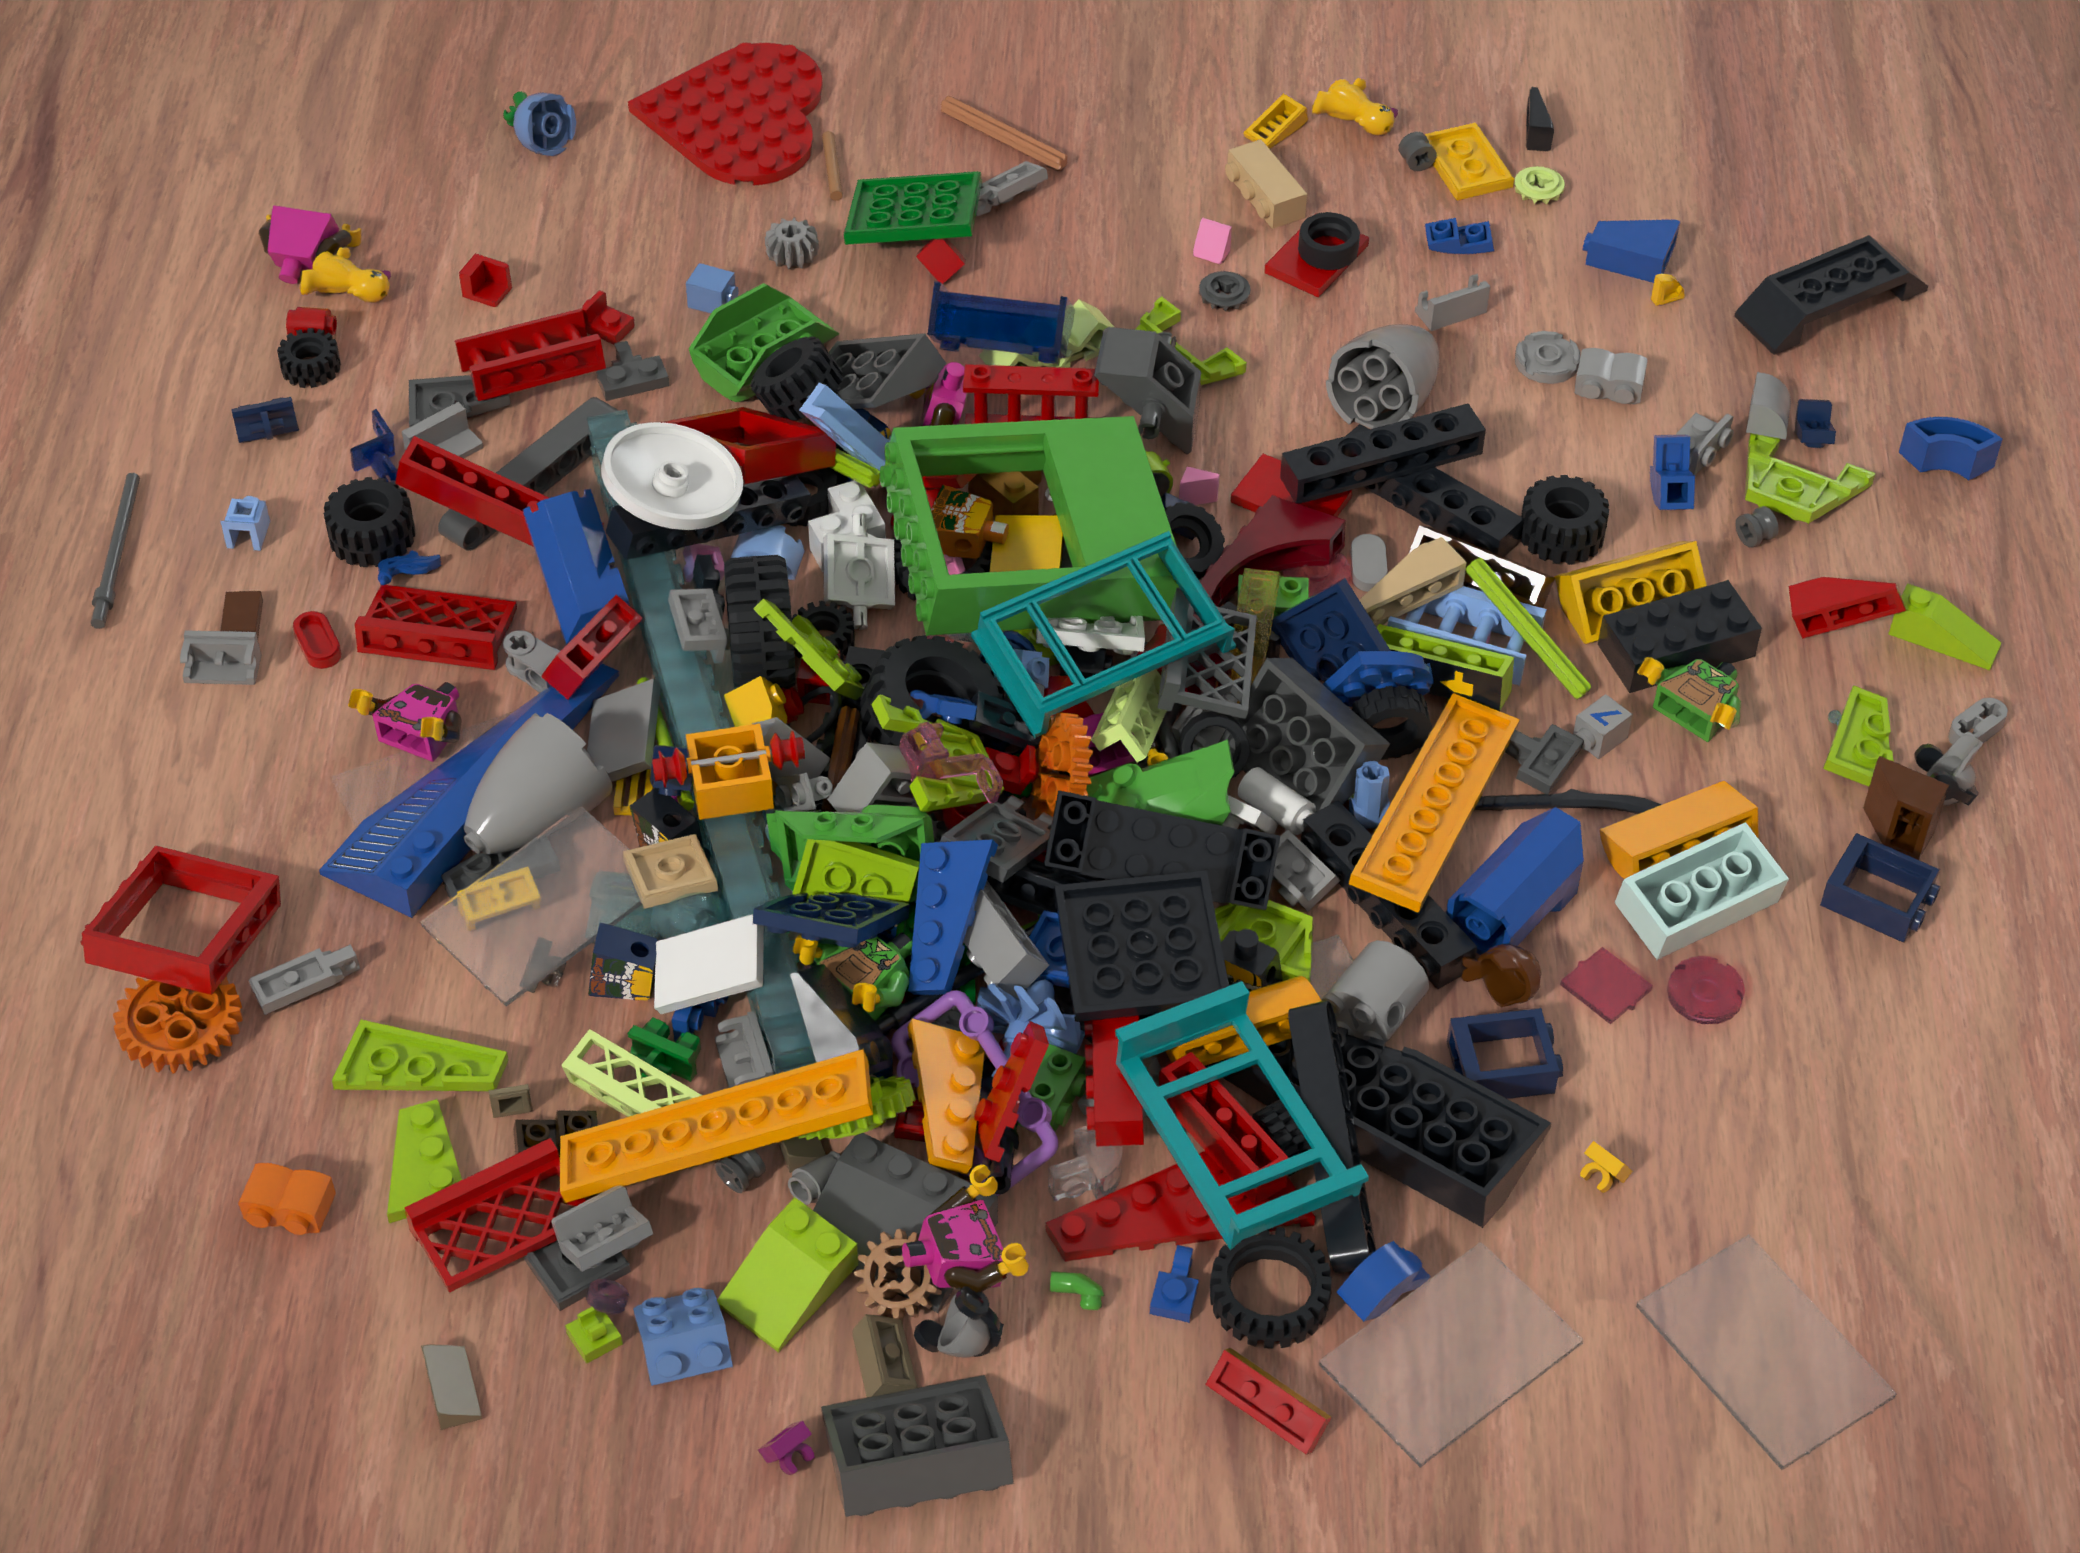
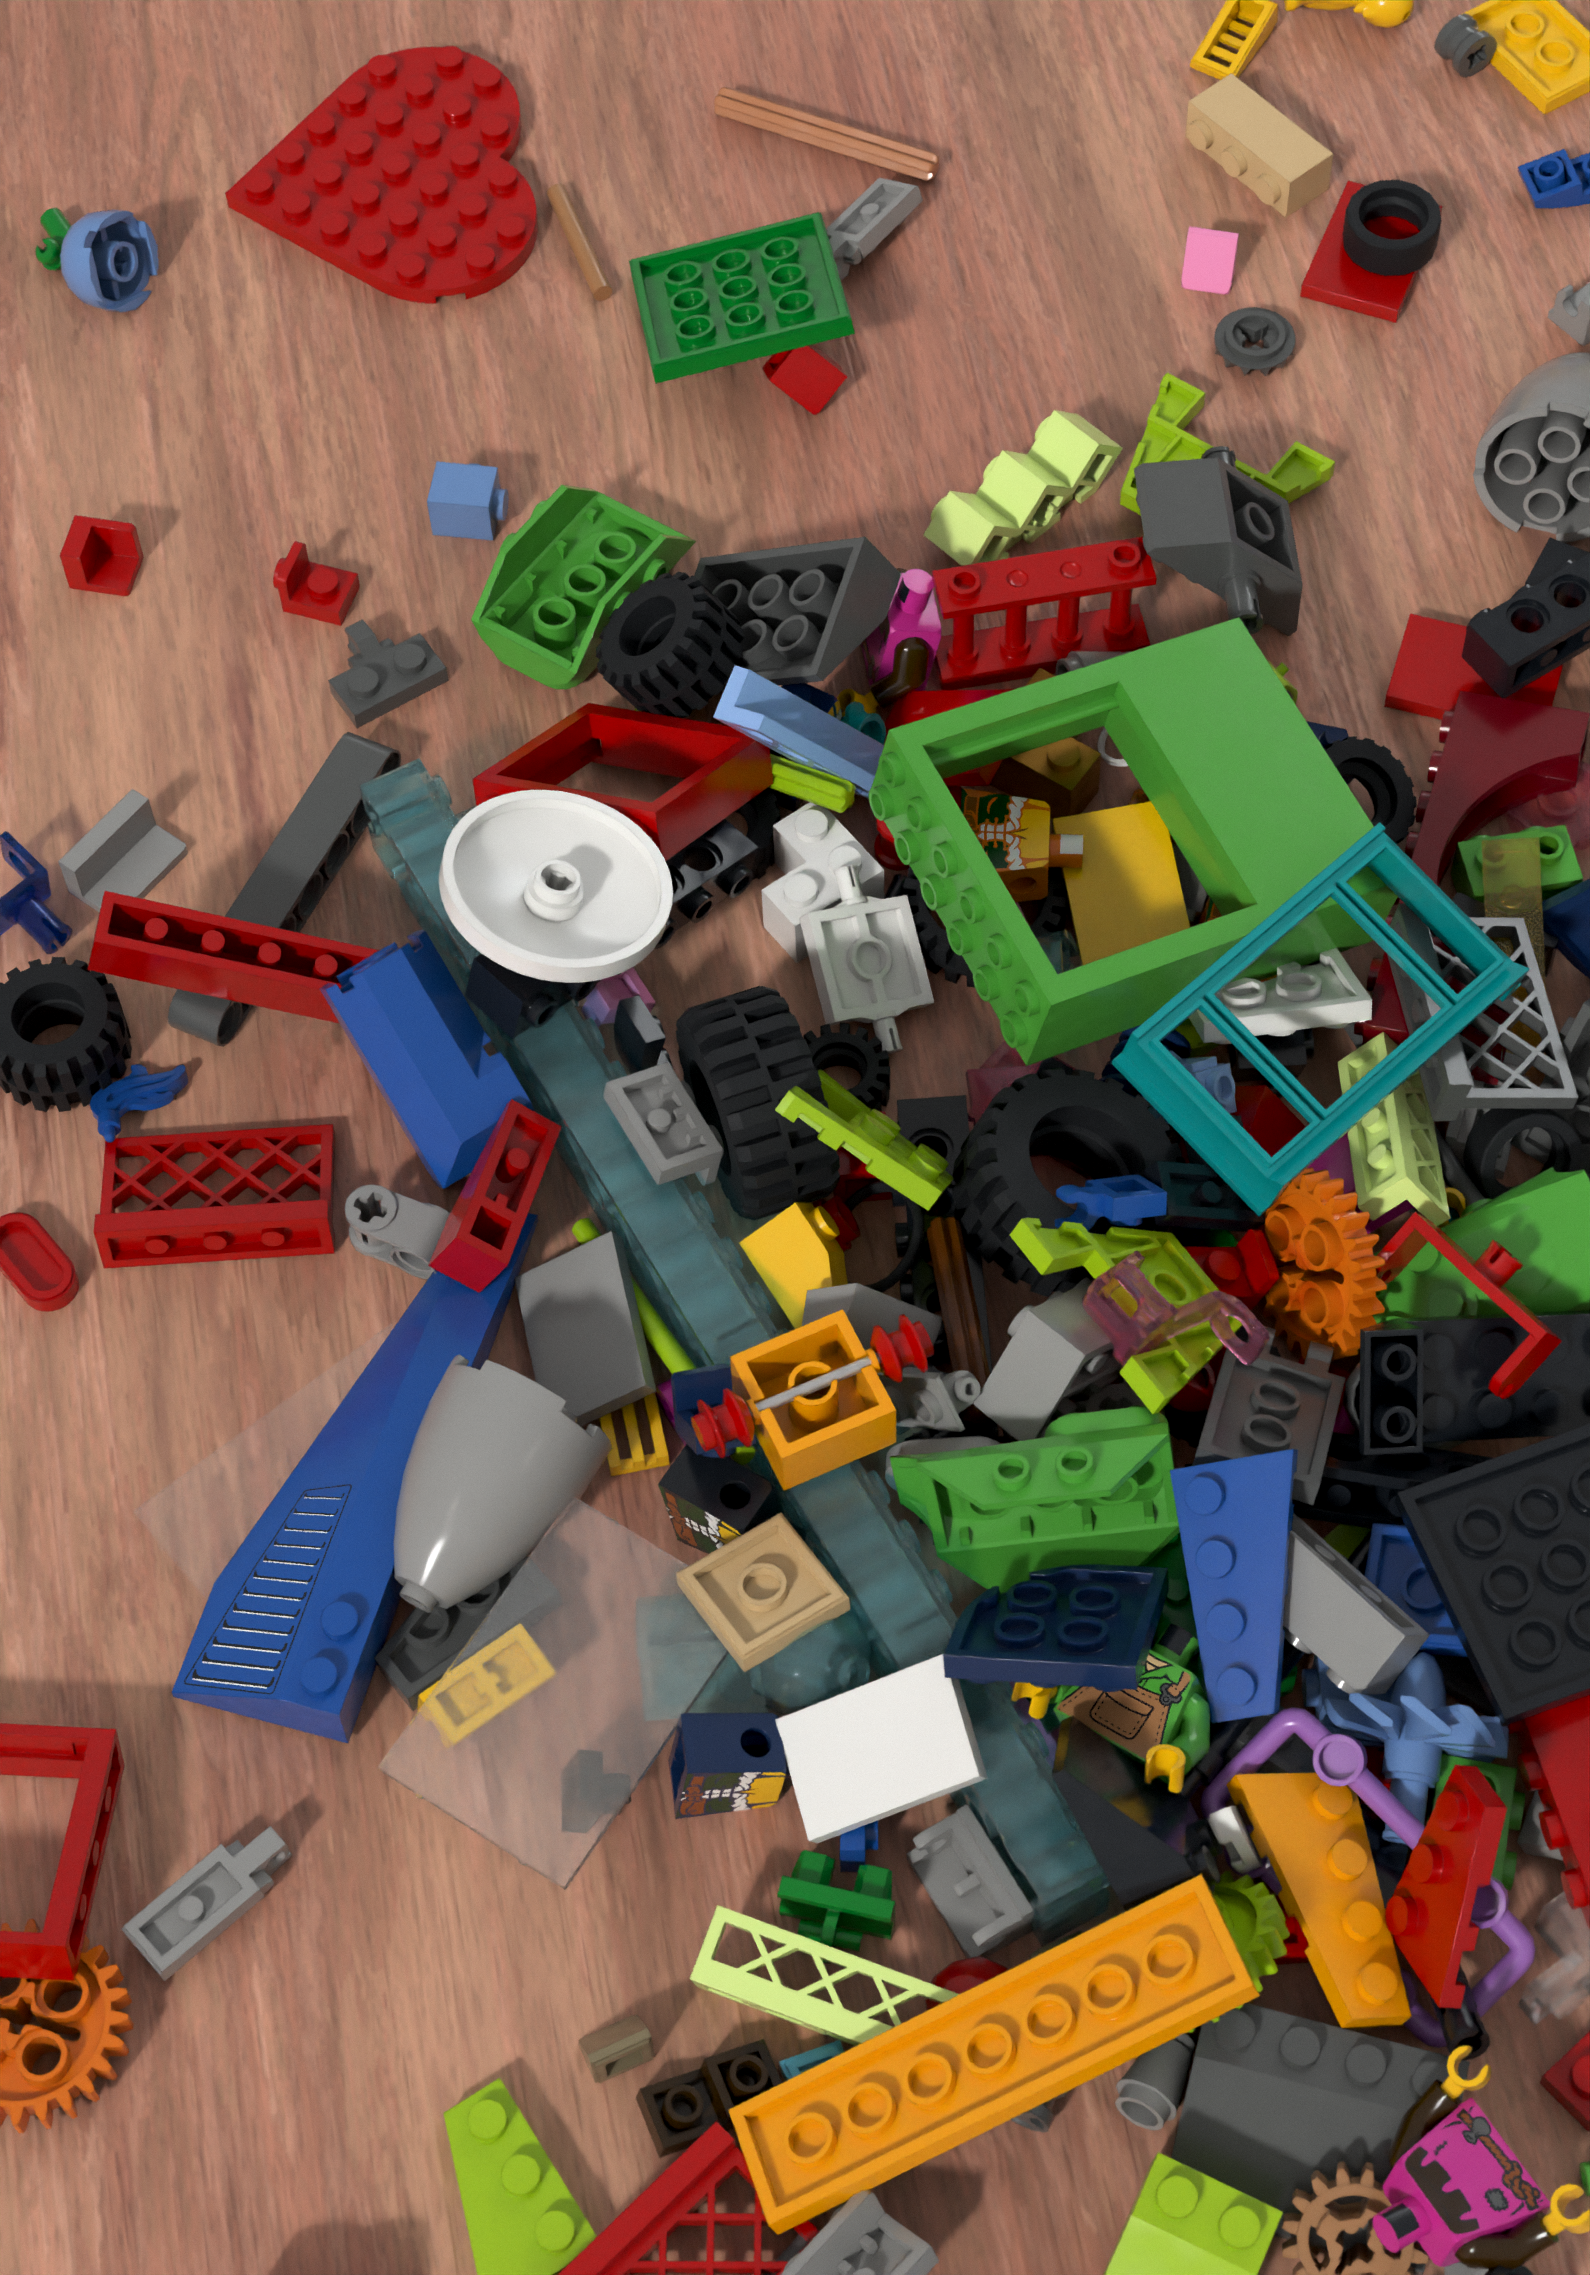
camera: 10 degrees left, 10 degrees up
(415, 719) = (243, 1379): torso -> none
(415, 1061) = (434, 2016): lime wing -> none
(435, 394) = (94, 778): dark grey wing -> none
(530, 354) = (235, 703): red fence -> none
(771, 542) = (710, 950): light blue cylinder -> none
(791, 243) = (564, 393): light grey gear -> none
(855, 870) = (1100, 1530): lime wing -> none
(901, 1044) = (1232, 1832): none -> white tile
(1000, 324) = (968, 485): clear blue windscreen -> none
(1152, 784) = (1490, 1275): none -> red piece
(1199, 486) = (1335, 693): bright pink slope -> none

